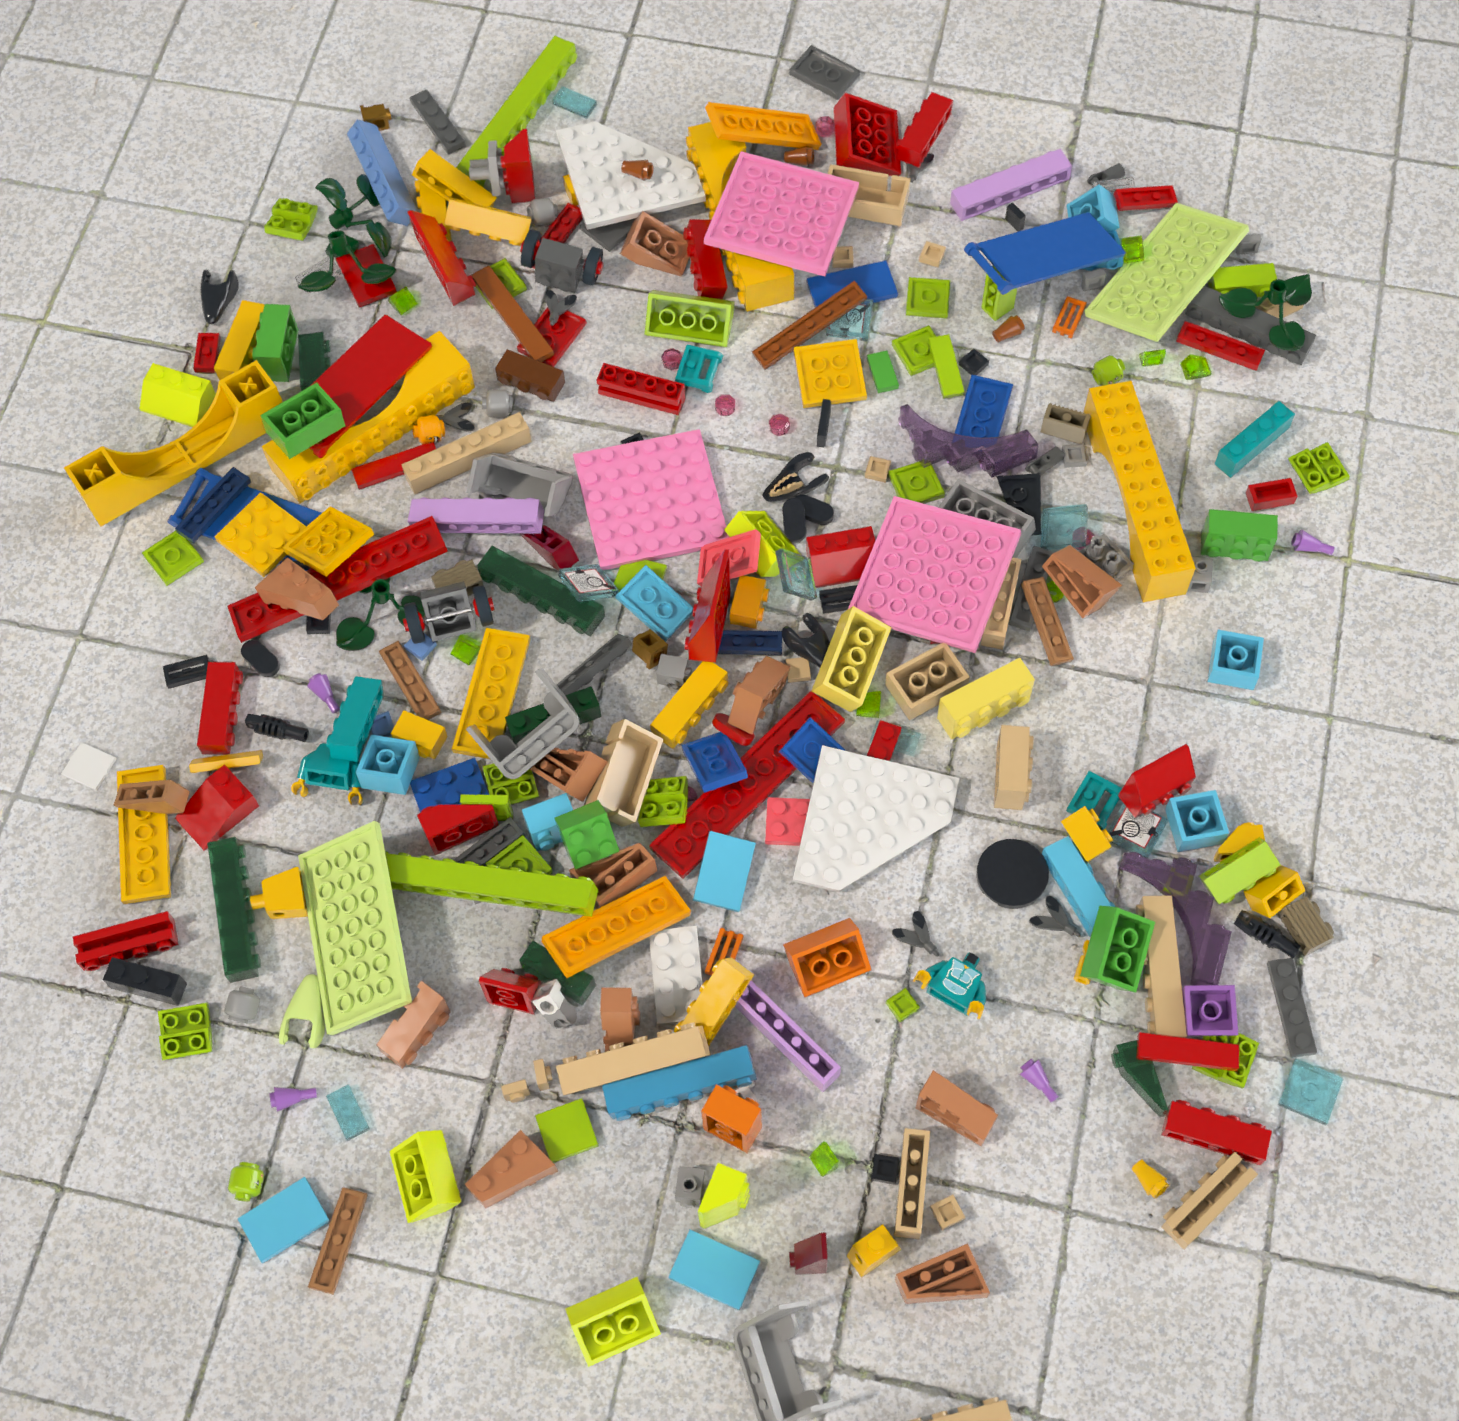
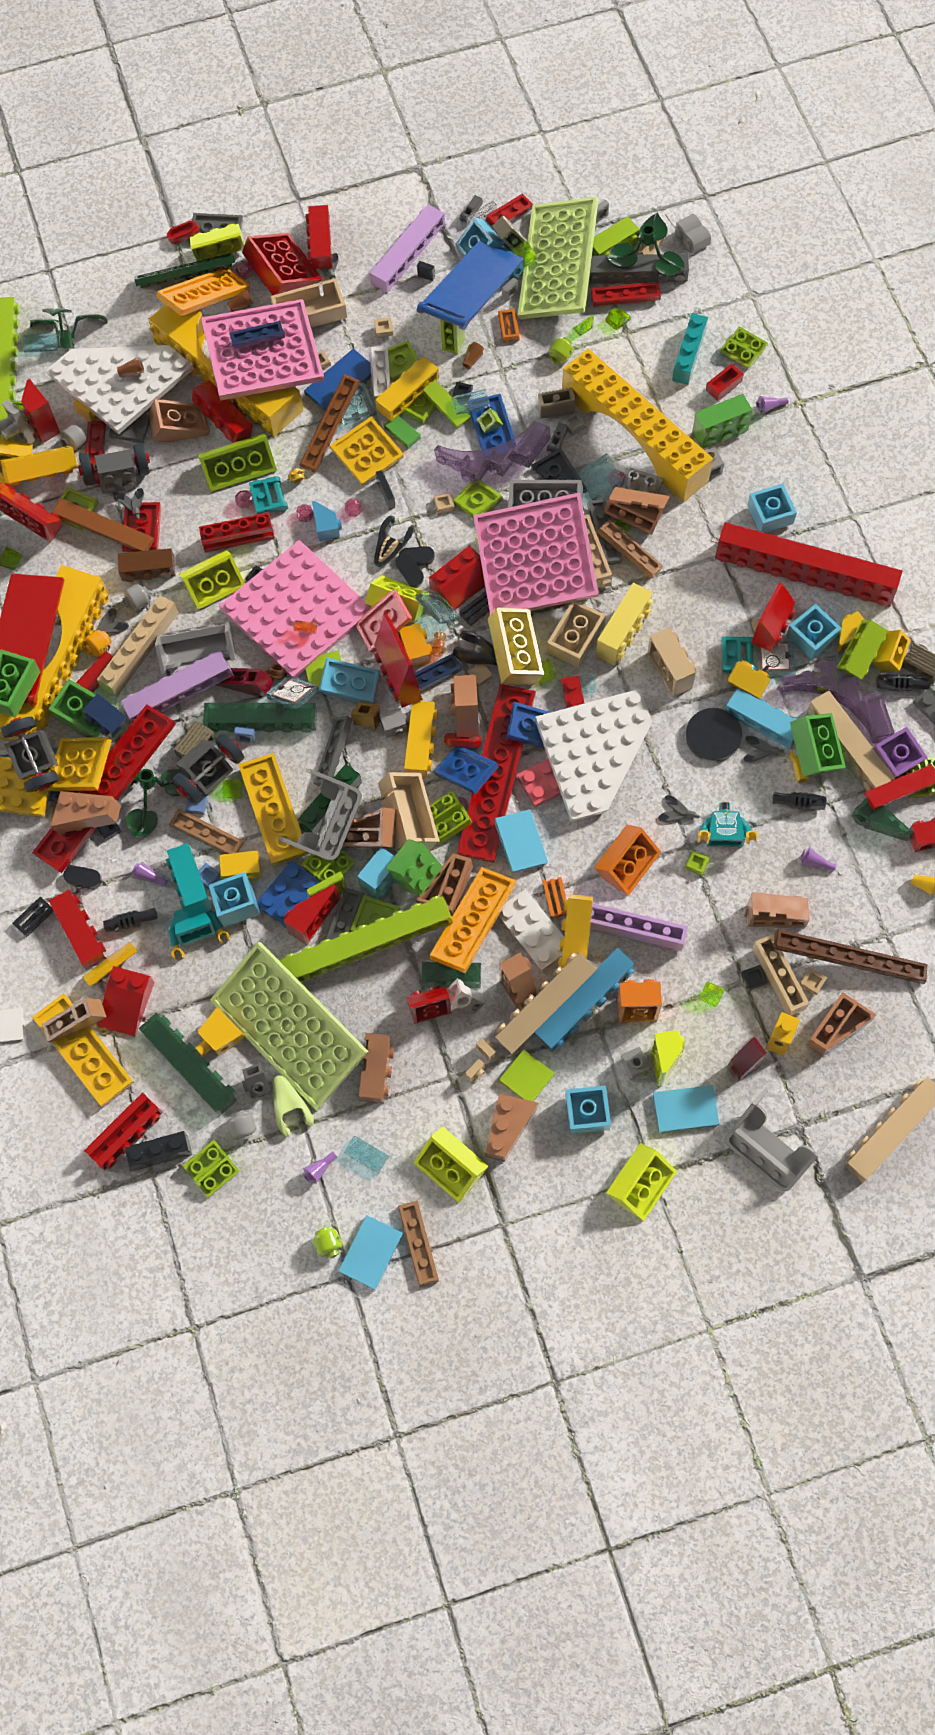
camera: 30 degrees left, 5 degrees up
(283, 504) = (30, 754): none -> brick
(286, 966) = (256, 1081): none -> dark grey brick
(367, 489) = (69, 709): none -> bright green brick
(380, 504) = (104, 716): none -> dark blue brick
(513, 601) = (245, 735): none -> medium blue tile
(585, 424) = (212, 579): none -> neon yellow slope
(587, 553) = (276, 672): none -> reddish brown plate
(598, 107) = (64, 336): none -> dark green plant
(604, 1205) = (587, 1109): none -> medium azure brick
(647, 524) = (307, 627): none -> clear orange pin
(739, 425) = (326, 522): none -> dark azure slope
(741, 362) = (296, 475): none -> yellow plate
(755, 96) = (190, 268): none -> dark green plate
(775, 614) = (439, 643): none -> clear orange pin
(783, 195) = (257, 335): none -> dark blue plate
(787, 59) = (182, 232): none -> red tile
(812, 85) = (217, 242): none -> neon yellow slope
(896, 299) = (379, 370): none -> white plate
(912, 329) = (406, 388): none -> yellow brick
(973, 376) = (470, 401): none -> clear light blue tile
(981, 406) = (489, 420): none -> lime slope
(1006, 1210) = (850, 956): none -> reddish brown tile
(1063, 1001) = (800, 800): none -> black hinge
(1127, 218) = (508, 233): none -> dark tan brick
(1238, 743) = (808, 564): none -> red brick
(1338, 316) = (693, 233): none -> light grey brick

